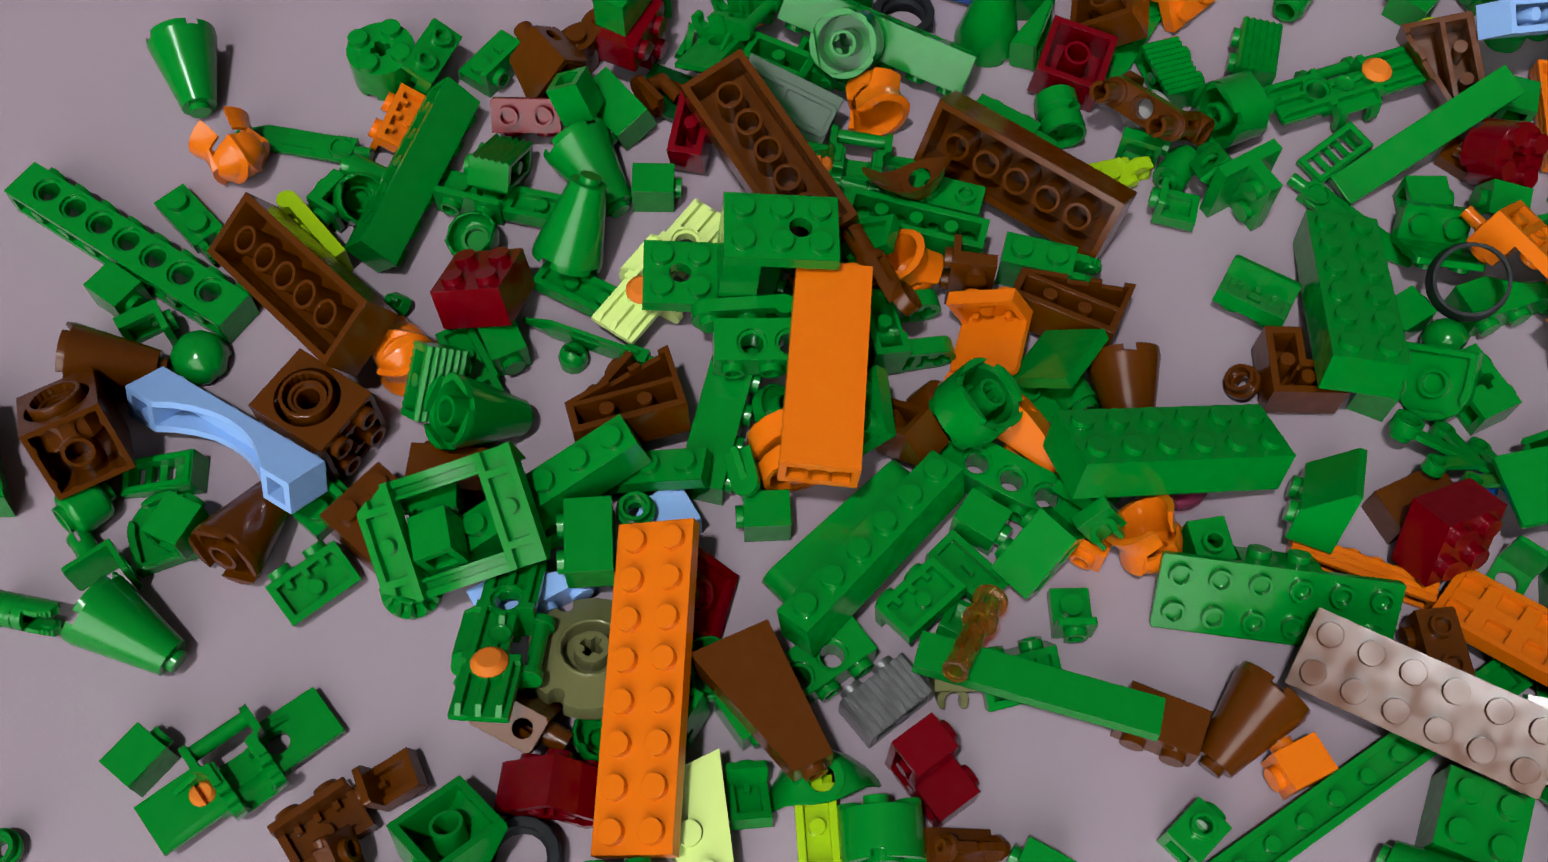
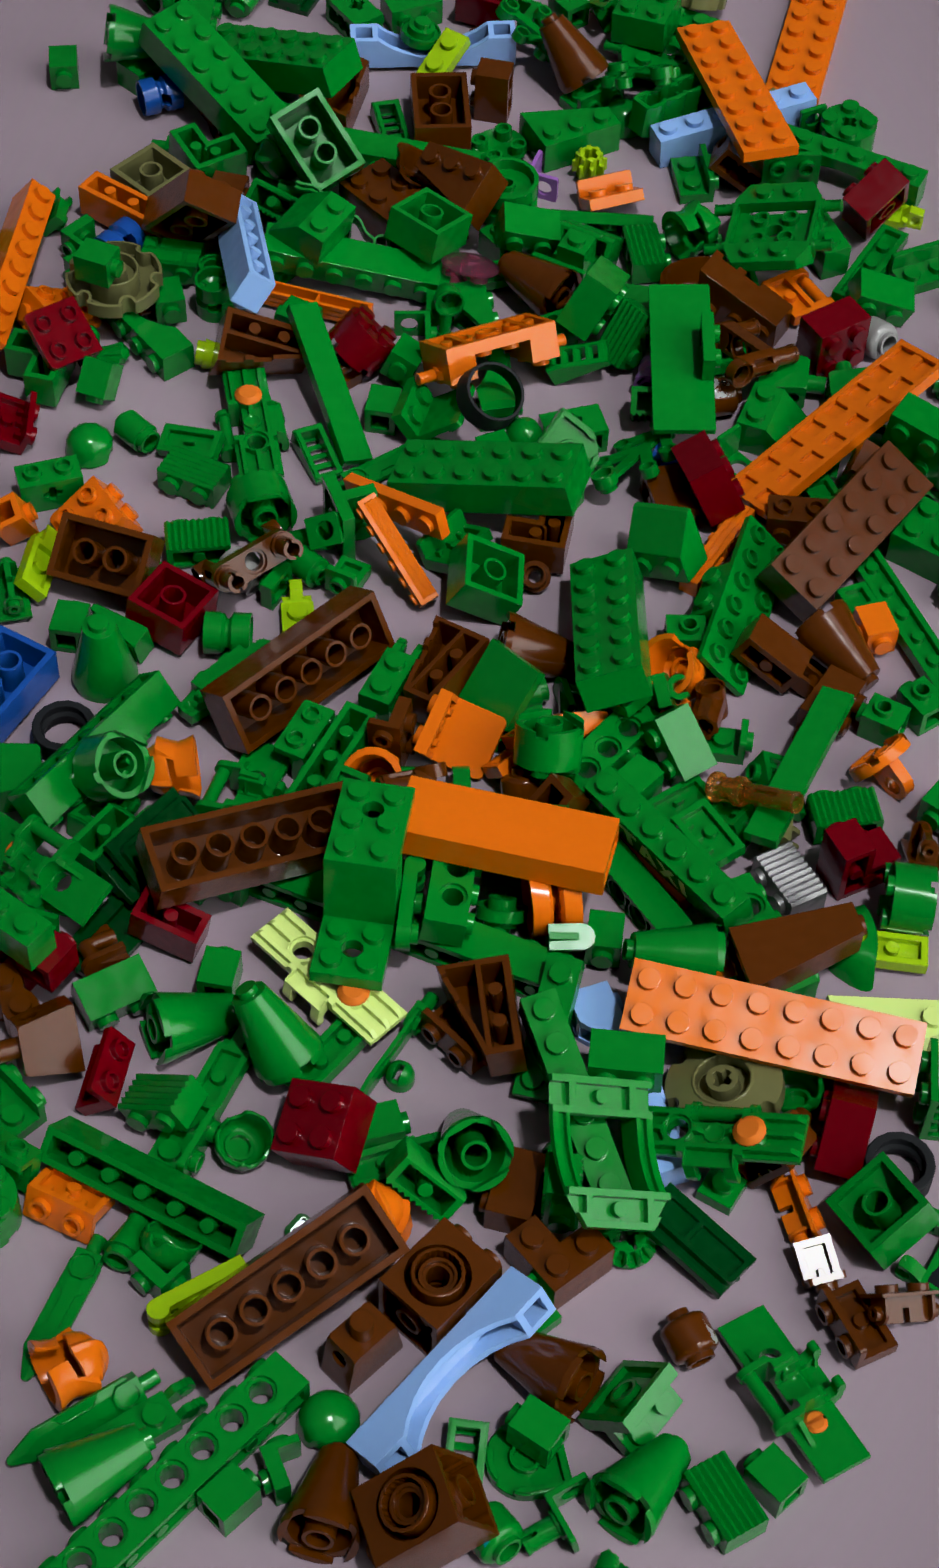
camera: 80 degrees left, 10 degrees down
(109, 712) = (722, 1503): none -> green brick
(126, 175) = (95, 1468): none -> green cone
(195, 176) = (84, 1416): none -> green piece
(214, 611) = (633, 1404): none -> green bracket
(256, 357) = (366, 1344): none -> reddish brown torso
(293, 657) = (689, 1338): none -> reddish brown head
(312, 582) = (608, 1321): green bracket -> none
(409, 654) = (700, 1244): none -> dark green piece
(437, 539) = (614, 1168): green brick -> none
(447, 761) = (794, 1192): none -> orange hinge
(575, 96) = (114, 1007): green brick -> none
(632, 500) = (595, 1015): green plate -> none
(742, 581) = (688, 947): none -> green cone
(747, 795) = (863, 987): green bracket -> none
(898, 180) = (295, 719): reddish brown piece -> none
(998, 754) = (830, 807): none -> green brick
(1084, 786) = (886, 767): none -> orange tile
(1112, 585) = (710, 705): none -> reddish brown piece
(1154, 788) = (881, 719): none -> green brick
(1205, 646) = (776, 657): none -> reddish brown brick
(1207, 324) = (485, 578): none -> green brick
(1212, 232) = (396, 549): none -> orange piece
(1274, 226) = (406, 509): none -> orange plate
(1298, 43) = (198, 440): none -> green plate
(1342, 739) = (856, 595): none -> green plate

